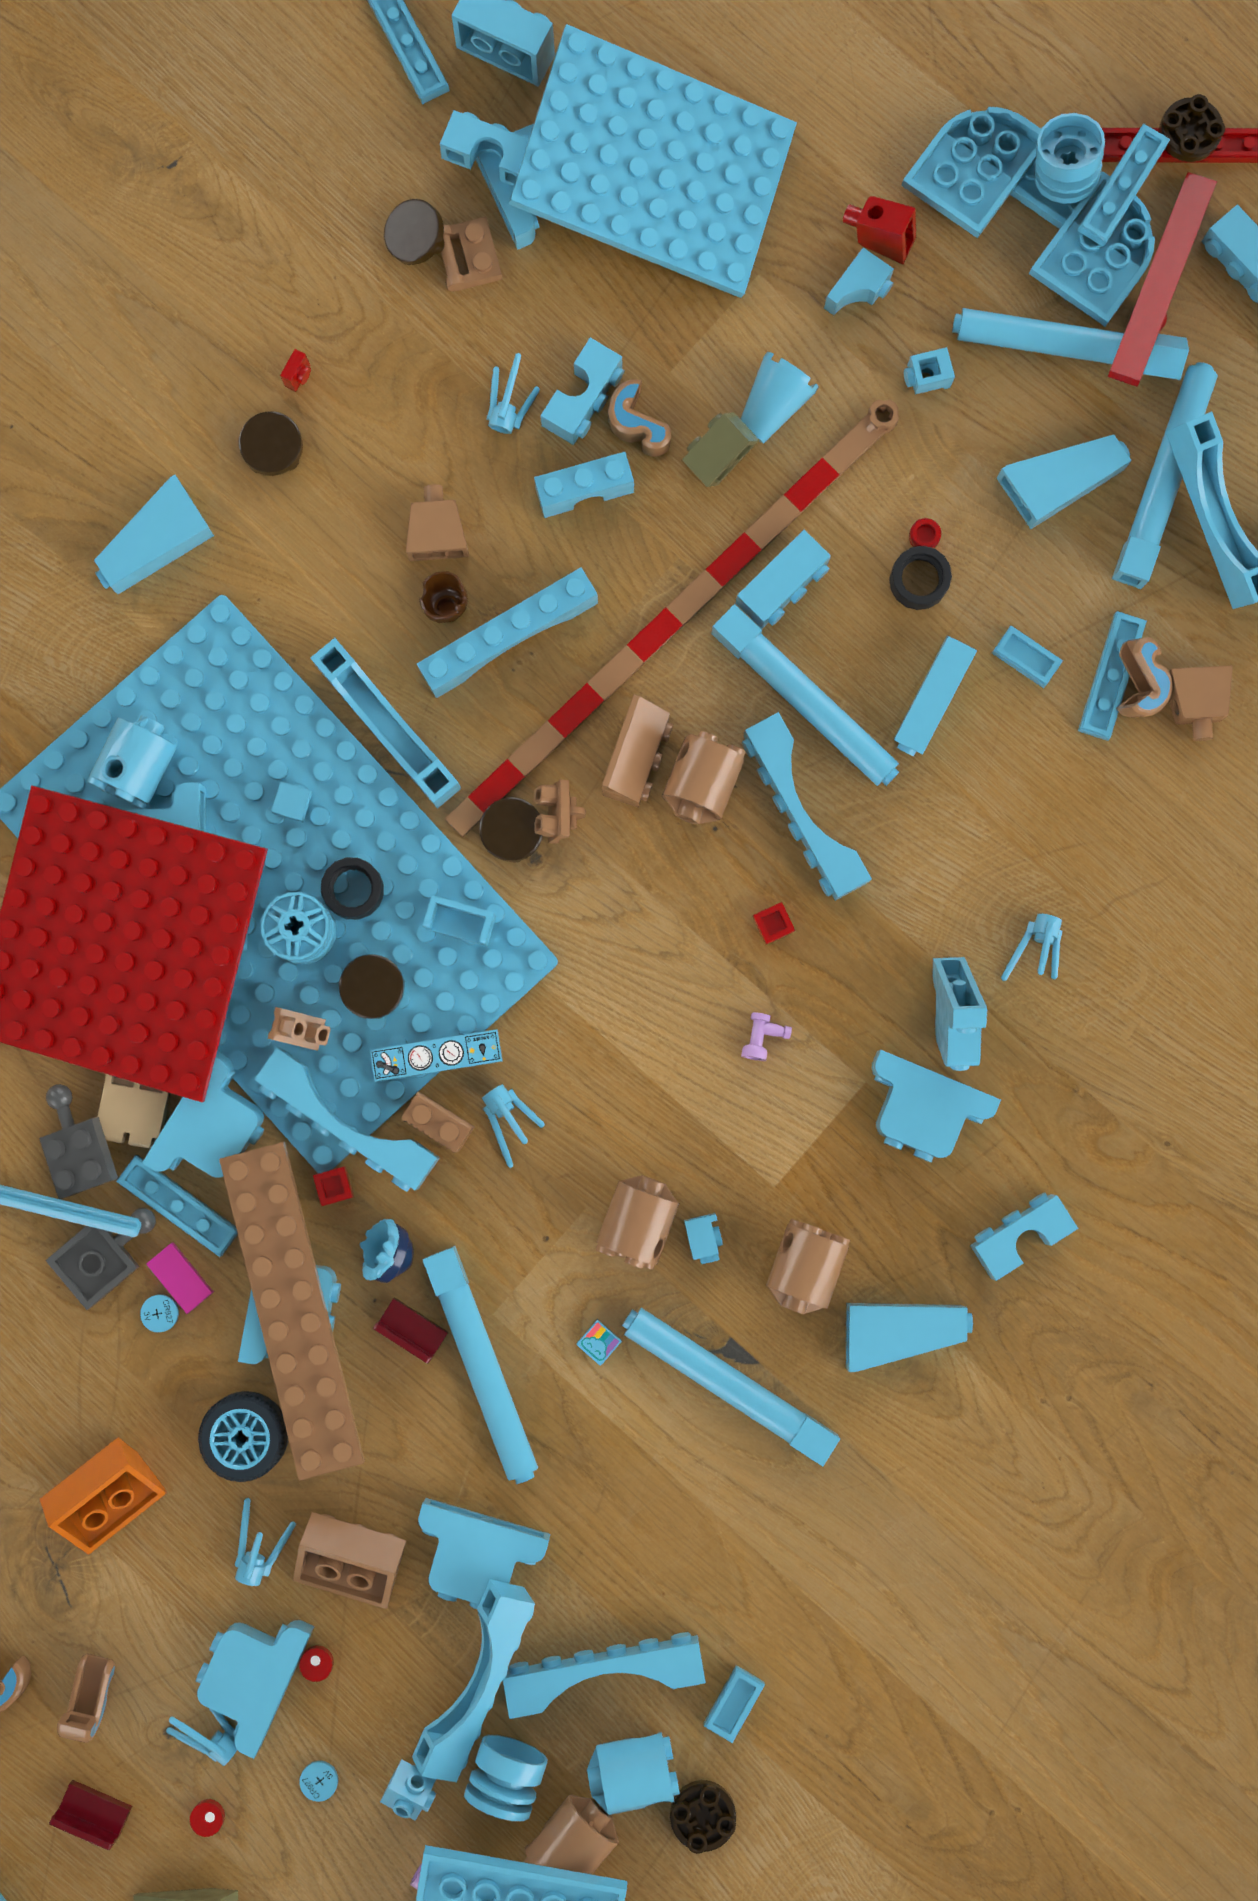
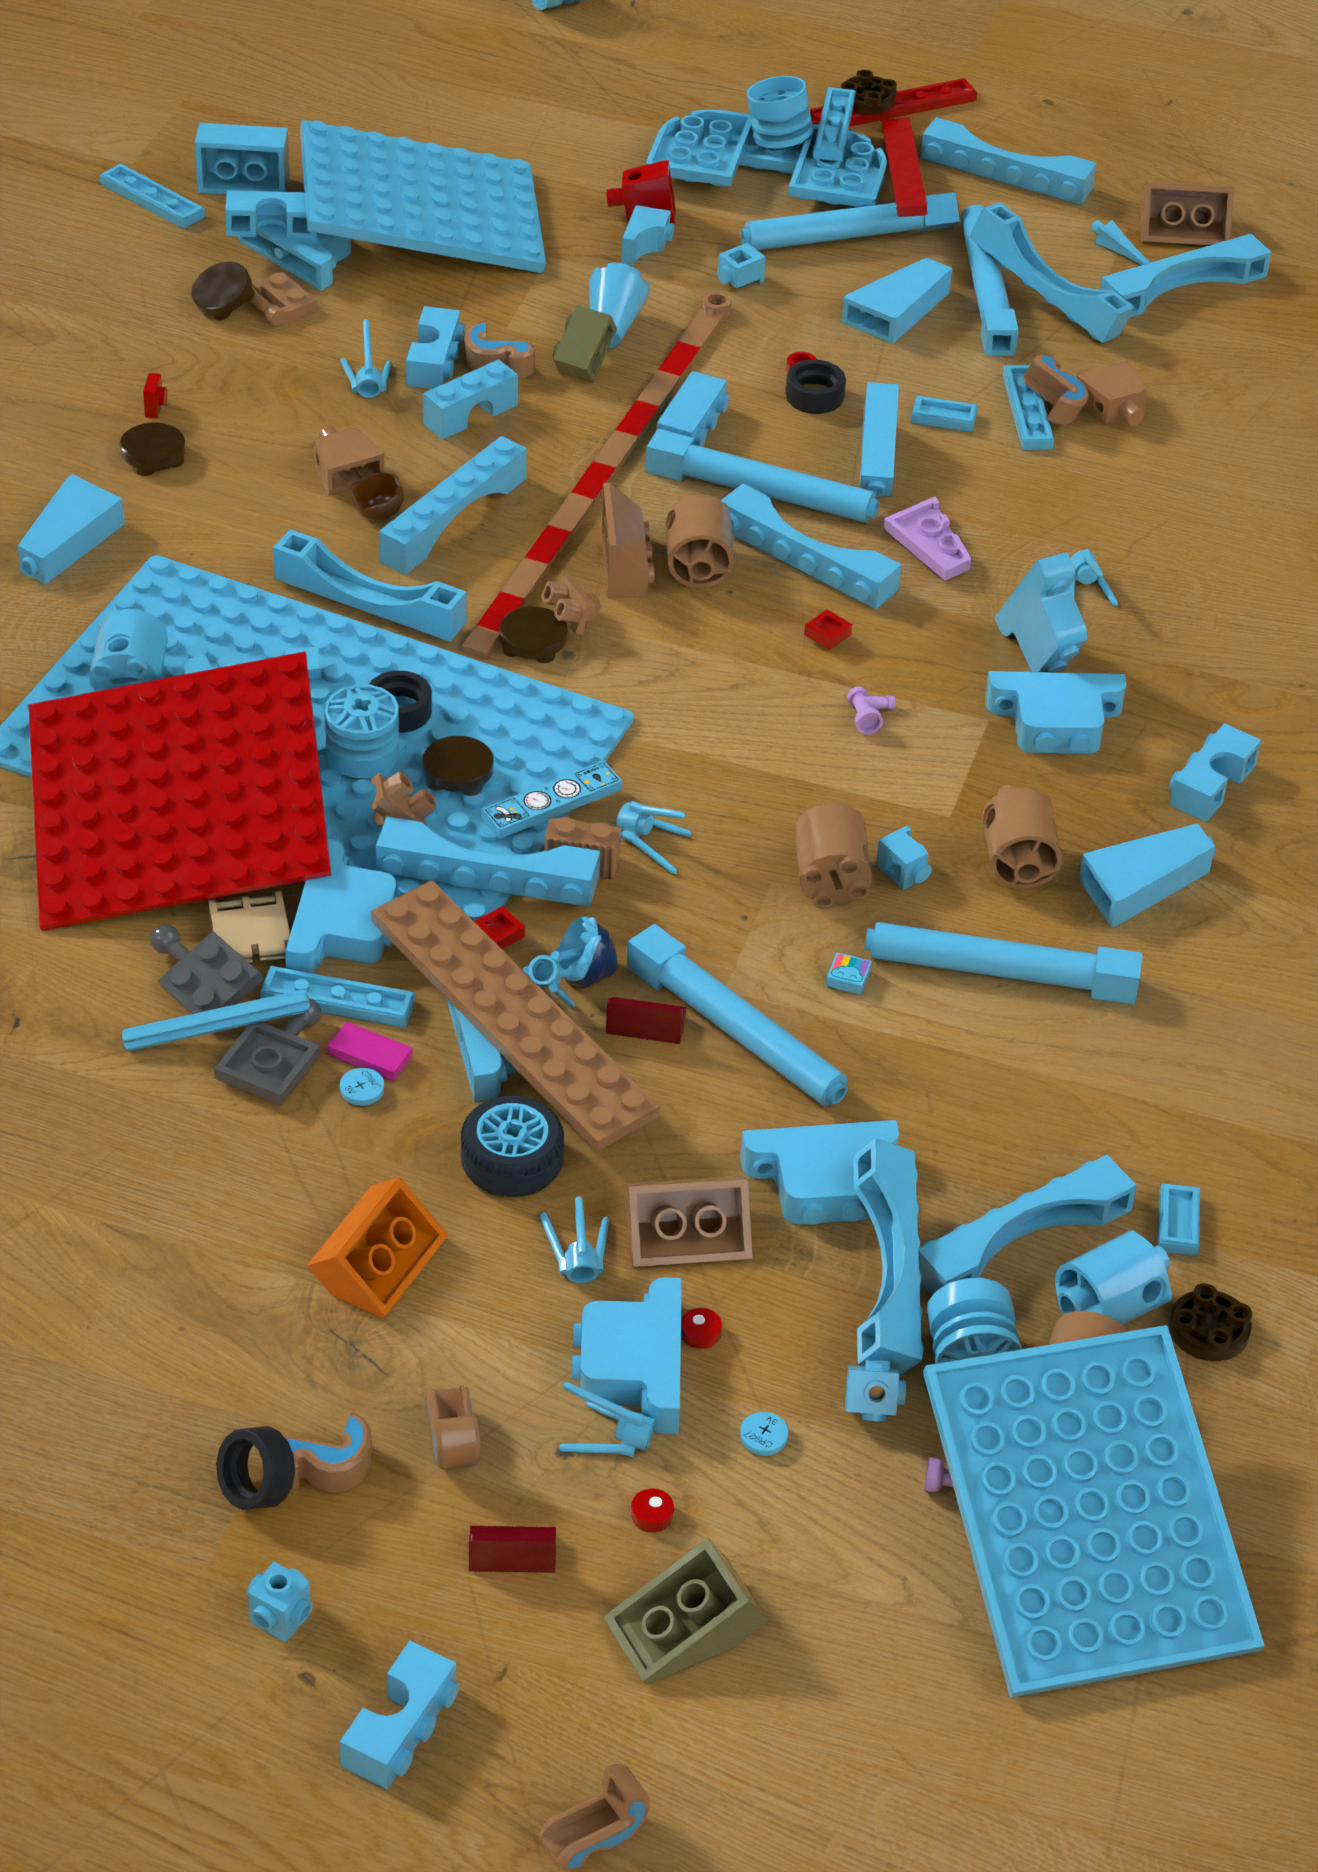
camera: 25 degrees left, 40 degrees down
(334, 1282) = (548, 972): none -> medium azure plant
(459, 920) = (521, 691): medium azure panel -> none
(924, 834) = (929, 538): none -> lavender wing

